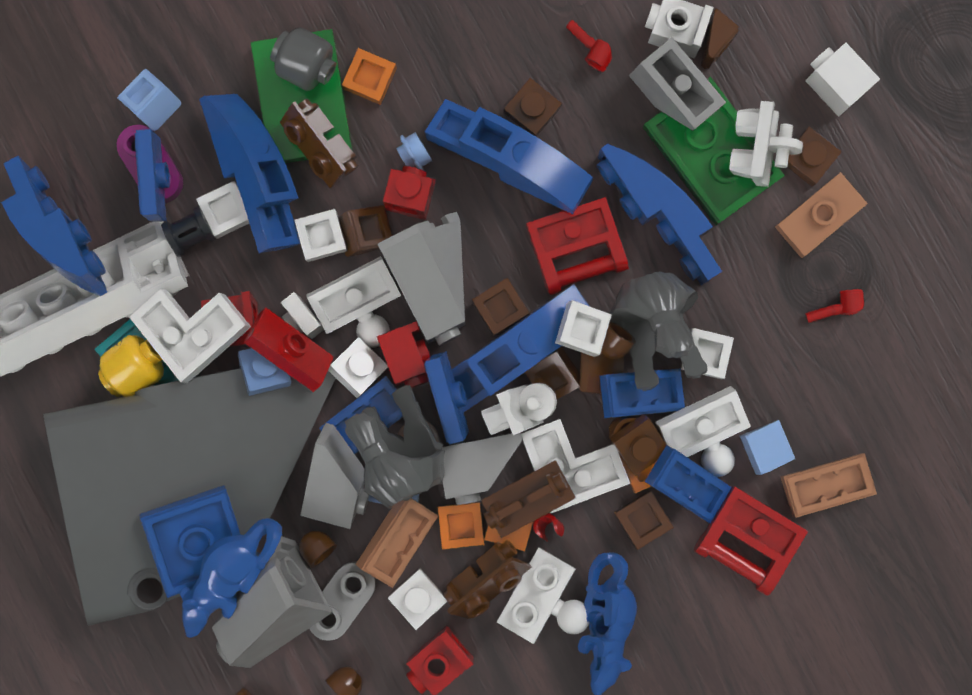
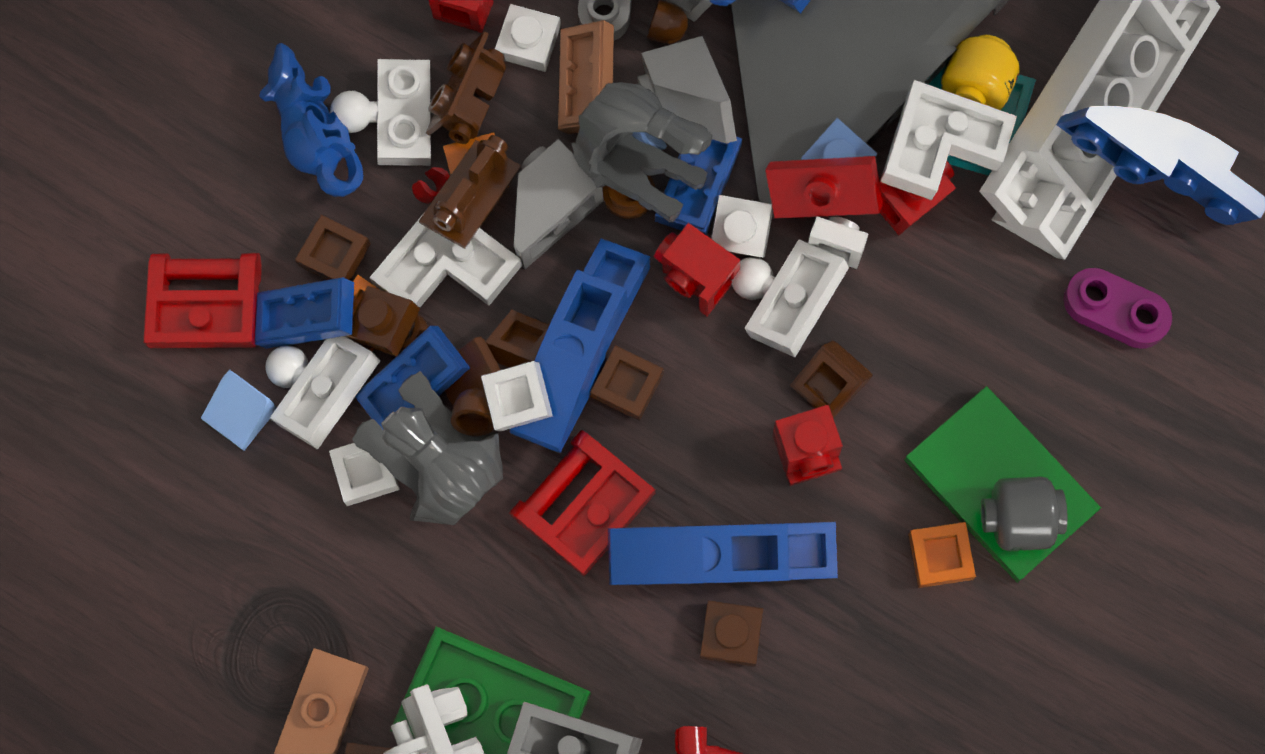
camera: 155 degrees right, 10 degrees down
(149, 100) = (1168, 377): light blue slope -> none
(152, 175) = (1100, 280): blue plate -> none
(180, 243) = (1022, 257): black bush -> none
(224, 209) = (999, 305): white plate -> none
(252, 157) = (995, 367): blue slope -> none
(306, 128) = (965, 439): reddish brown hinge -> none
(320, 235) = (875, 341): white plate -> none
(413, 151) = (833, 496): light blue plate -> none
(430, 275) = (724, 363): light grey slope -> none
(448, 397) = (622, 241): blue plate -> none
(460, 525) = (527, 130): orange tile -> none
(520, 408) = (536, 275): white hips -> none
(652, 194) = (530, 609): blue slope -> none
(828, 485) = (147, 408): nougat plate -> none
(850, 303) = (230, 626): red hand -> none

